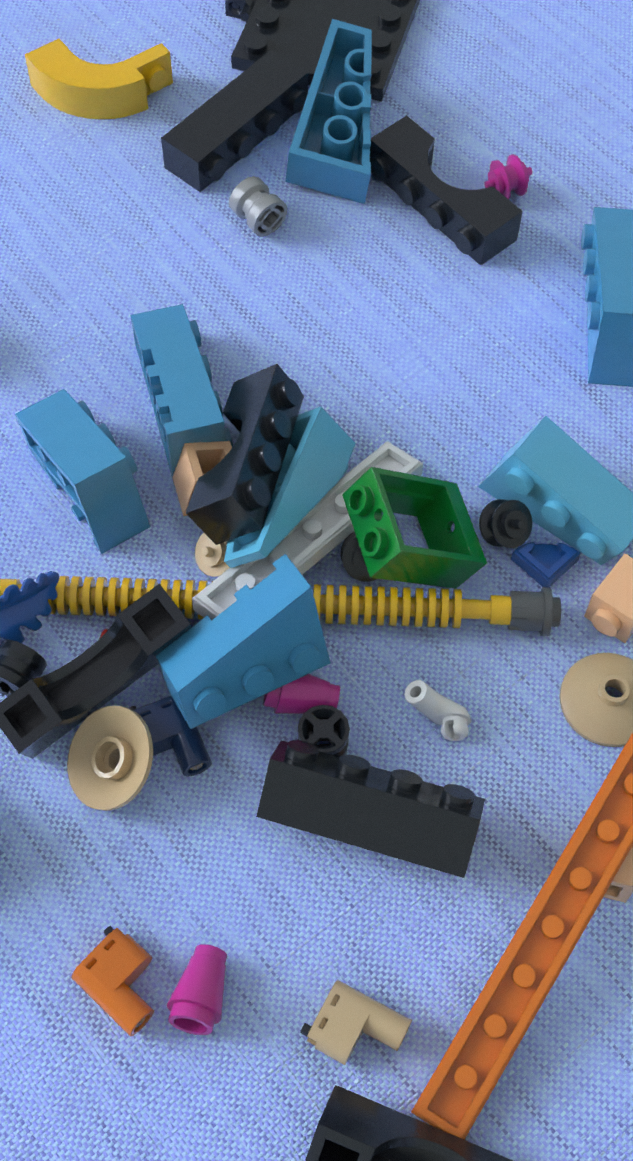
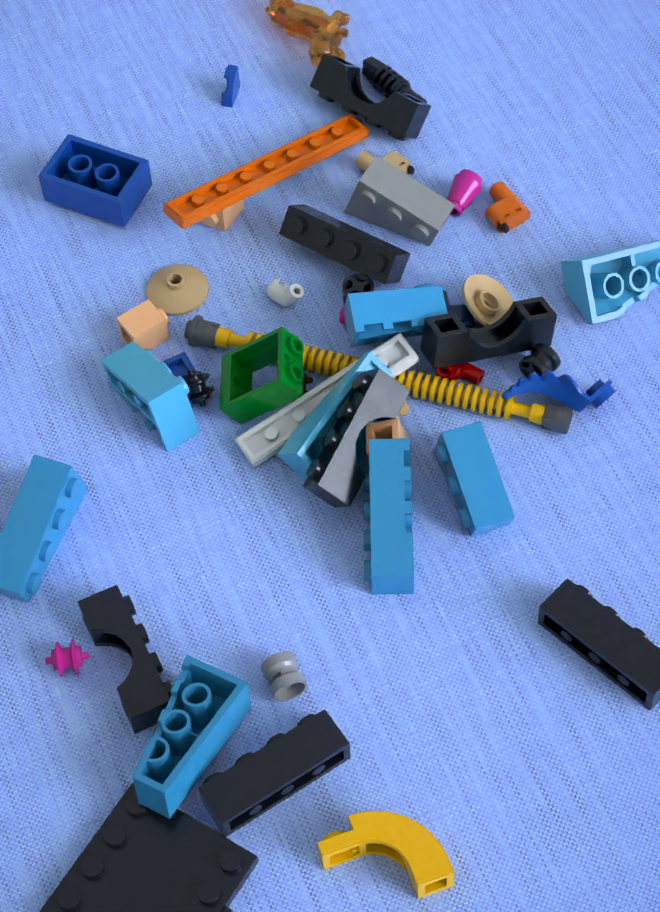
camera: 160 degrees left, 5 degrees down
(303, 914) = (398, 203): none -> light grey wedge

